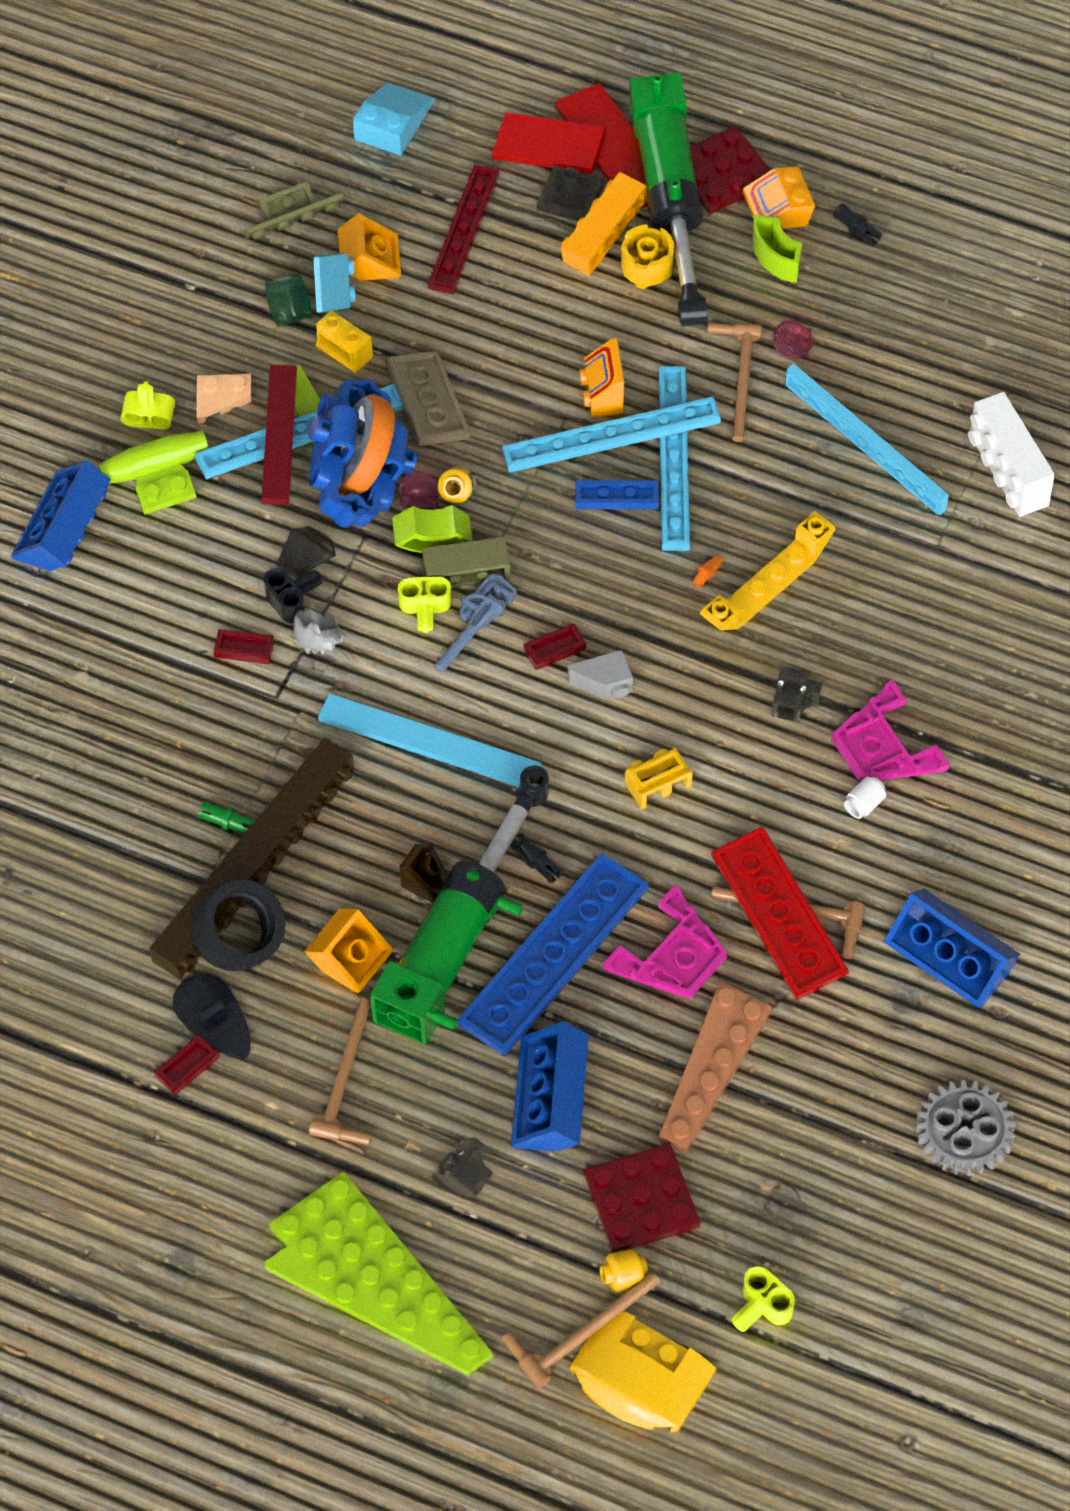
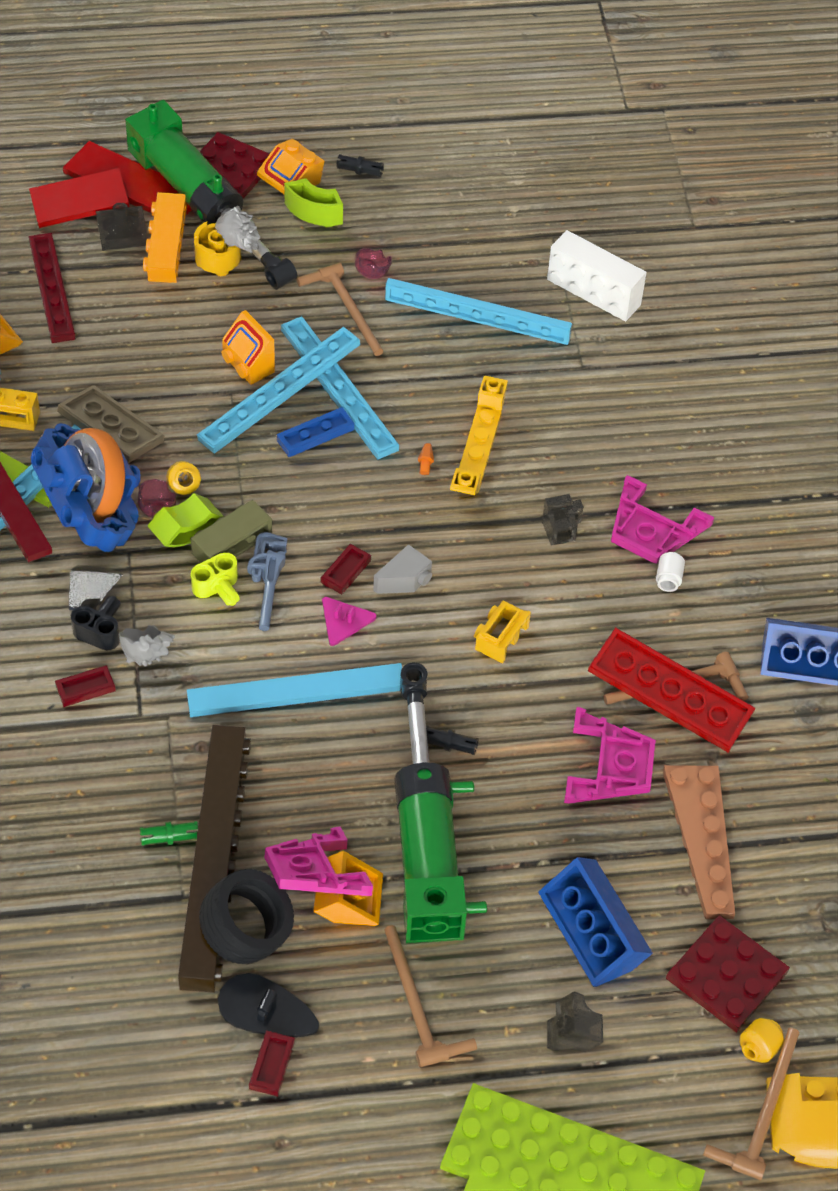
camera: 35 degrees left, 5 degrees down
(315, 905) = (307, 868): none -> dark pink wing
(423, 872) = (370, 800): dark brown slope -> none
(520, 695) = (344, 619): none -> dark pink piece
(552, 954) = (518, 812): blue plate -> none
(668, 248) = (238, 229): none -> light grey hair

